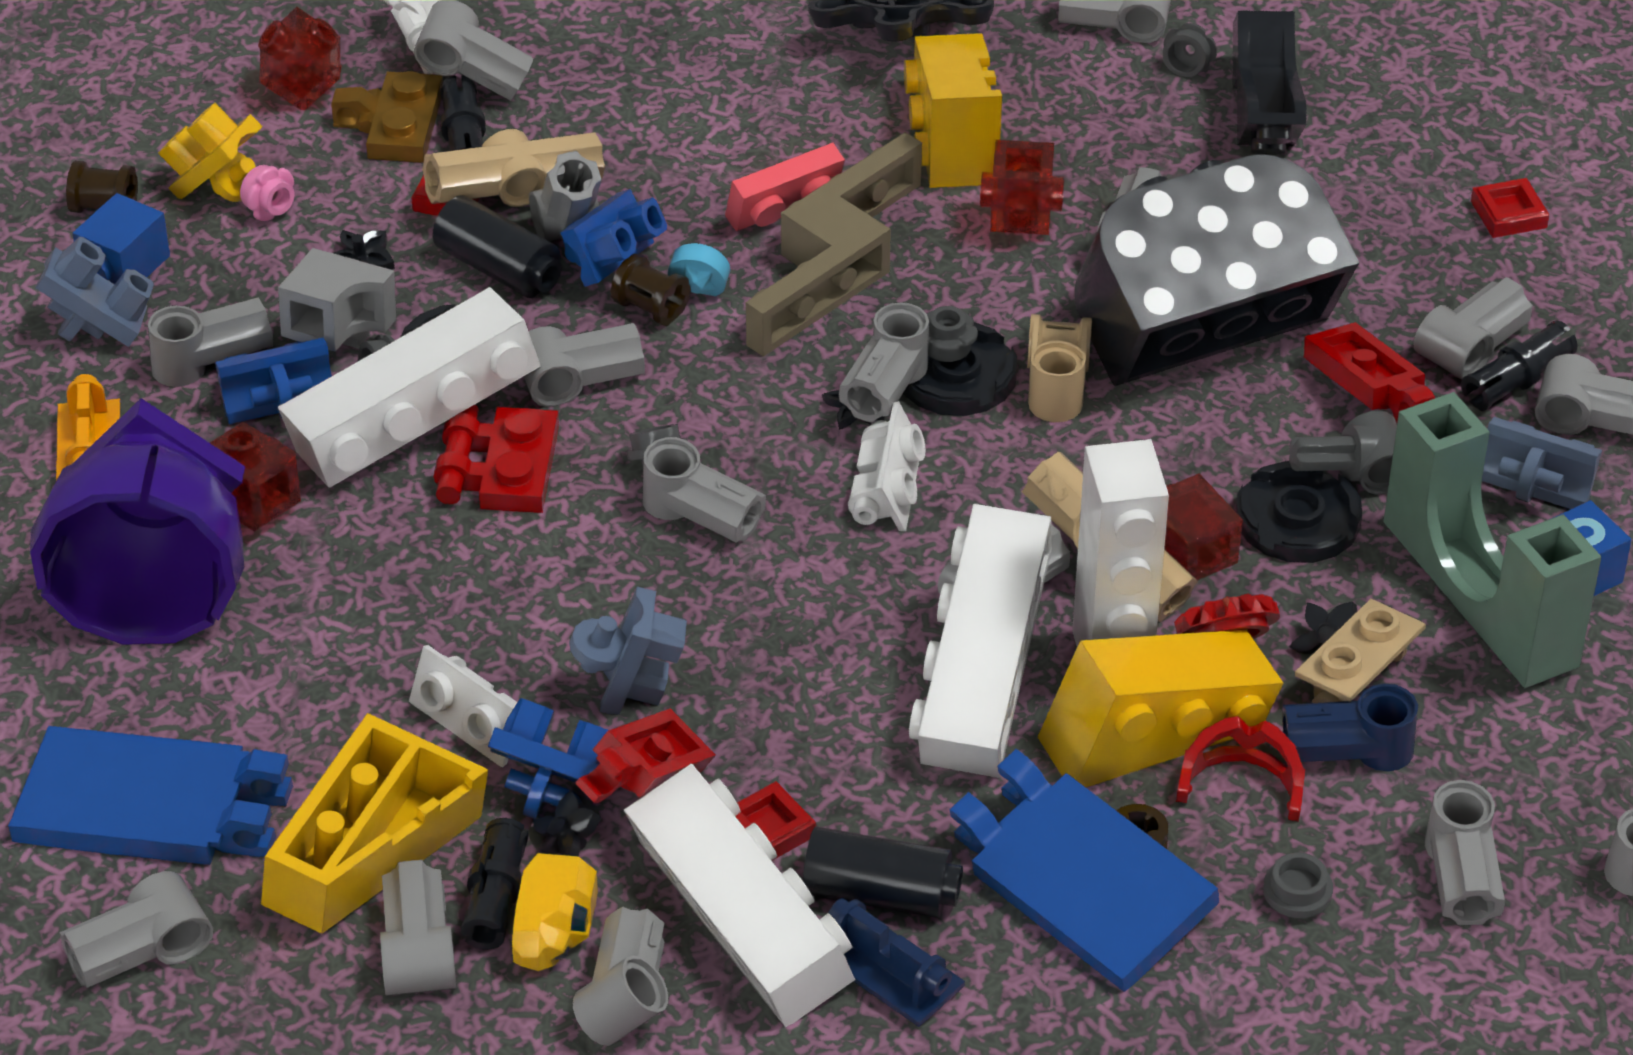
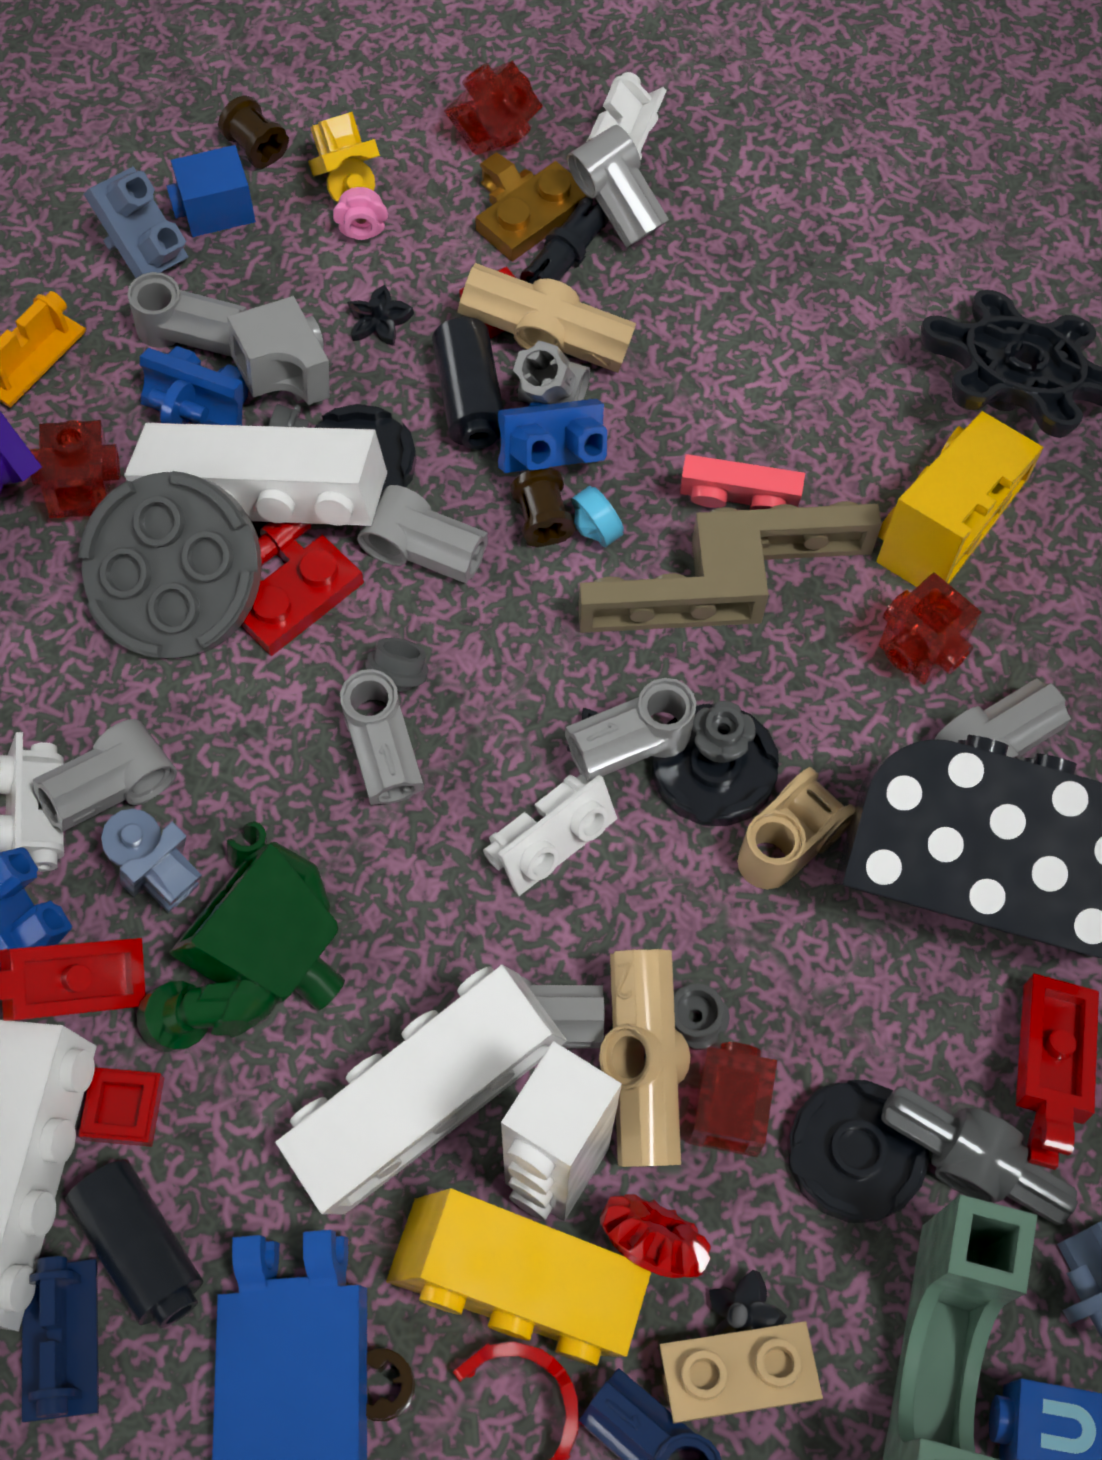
camera: 40 degrees right, 20 degrees up
(409, 483) = (170, 565): none -> dark grey tile
(518, 639) = (120, 767): none -> light grey piece
(761, 646) = (255, 942): none -> dark green torso

